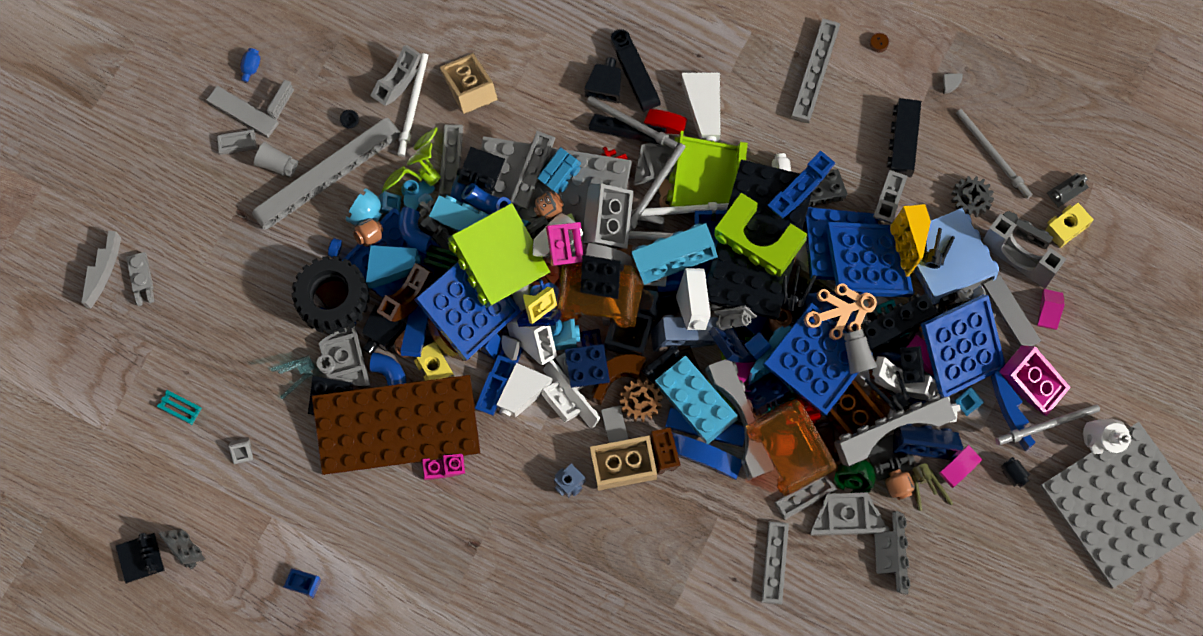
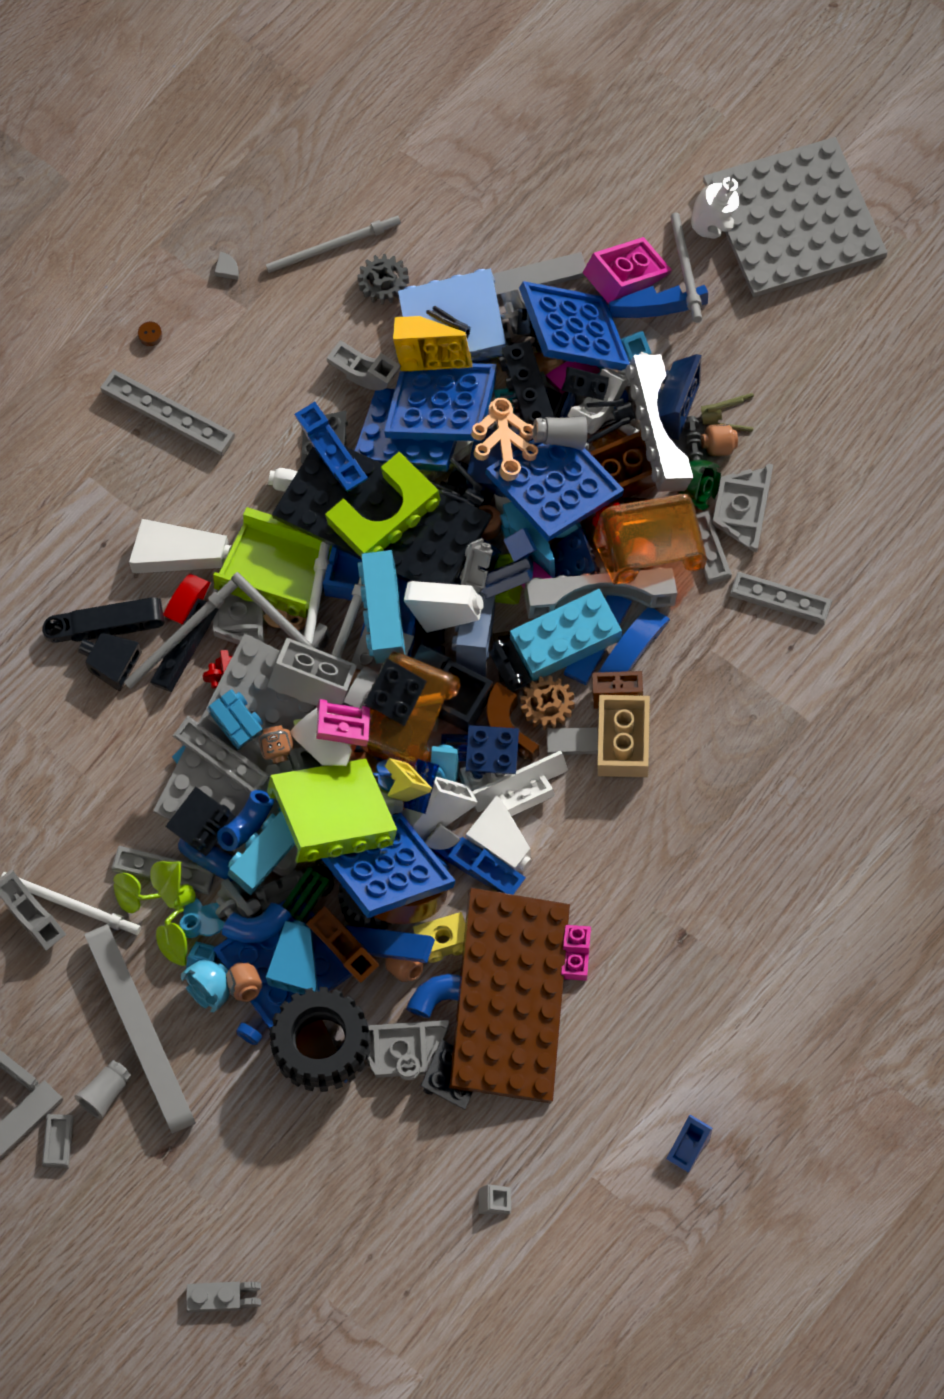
camera: 75 degrees left, 5 degrees down
(99, 274) = (204, 1350): light grey slope -> none
(140, 557) = (609, 1350): black hinge -> none
(165, 399) = (407, 1266): teal tile -> none
(182, 547) = (620, 1279): dark grey hinge -> none
(303, 365) = (401, 1101): clear light blue plant -> none
(349, 118) = (68, 986): black tile -> none
(381, 332) = (379, 994): black torso -> none
(469, 83) = (62, 825): tan slope -> none
(571, 474) = (631, 803): sand blue brick -> none
(891, 553) = (798, 470): dark grey bracket -> none
(905, 136) = (287, 332): black brick -> none
(960, 466) = (714, 374): dark pink slope -> none
(1015, 472) = (732, 317): black brick -> none
(1029, 232) = (441, 233): dark grey hinge -> none
(1037, 268) = (498, 225): light grey arch -> none
(1050, 309) = (544, 231): dark pink slope -> none
(1068, 189) = (401, 176): dark grey hinge -> none
(1076, 217) = (446, 174): light yellow brick -> none

